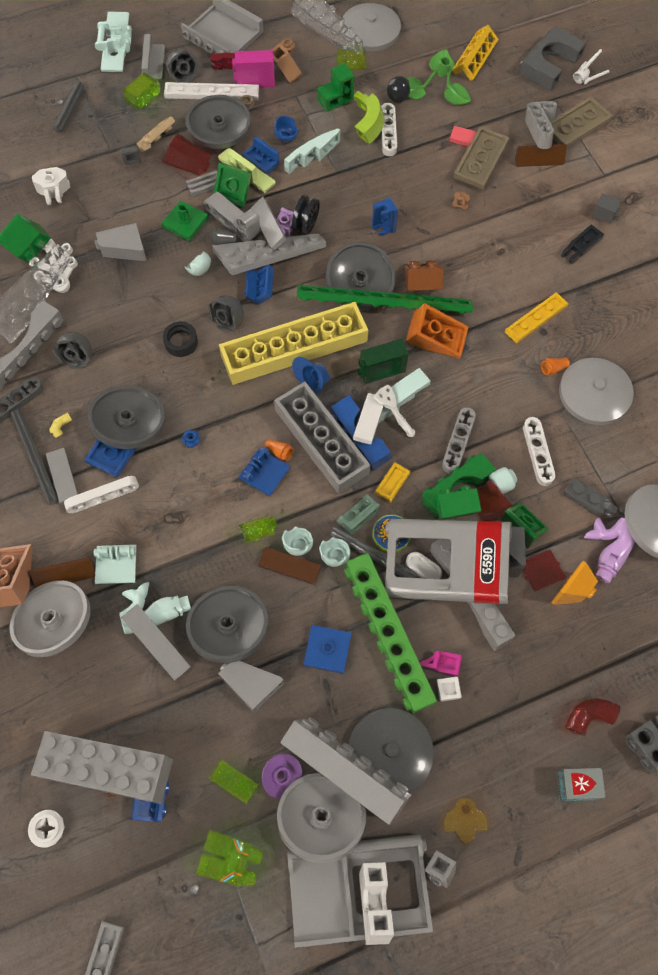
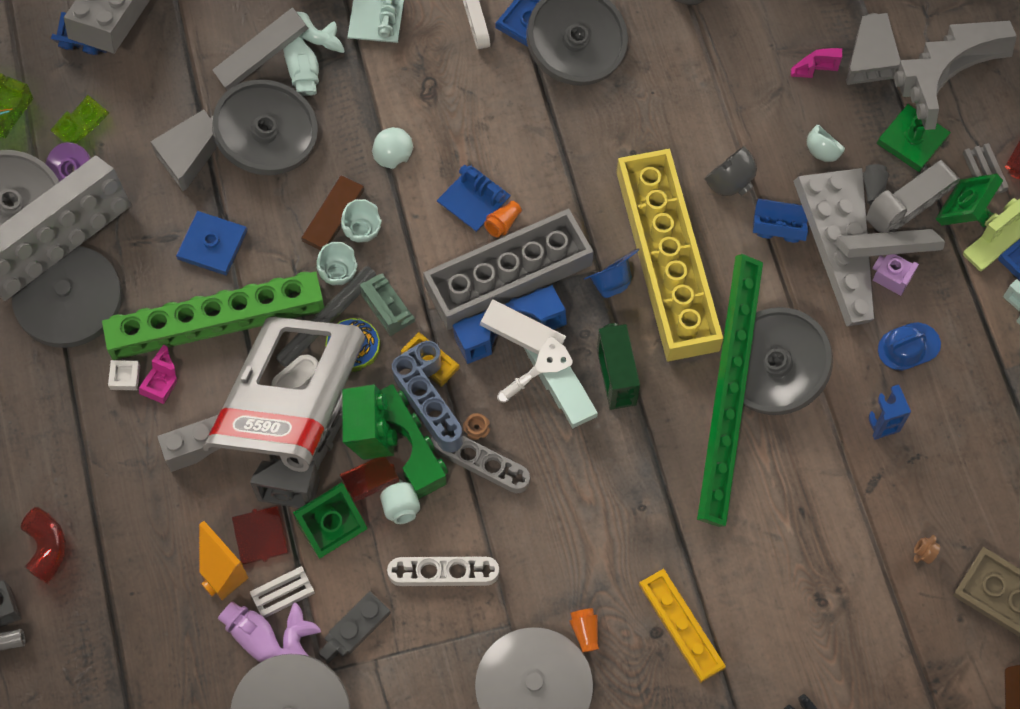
camera: 100 degrees right, 0 degrees up
(136, 277) = (818, 60): none -> dark pink slope
(145, 205) = (942, 60): none -> light grey arch
(178, 327) = (705, 97): black tyre -> none
(191, 442) = (538, 120): blue plate -> none
(229, 533) = (392, 147): none -> light aqua hair
(258, 528) = (385, 174): clear neon green hips -> none
(305, 214) = (901, 296): black wheel -> none
(332, 217) = (909, 346): none -> blue piece
(423, 276) = (775, 459): dark orange slope -> none
(428, 469) = (431, 400): none -> sand blue beam
(436, 332) = (666, 462): orange slope -> none
(436, 441) = (481, 421): none -> medium nougat plate
(572, 534) = (256, 593): none -> white tile

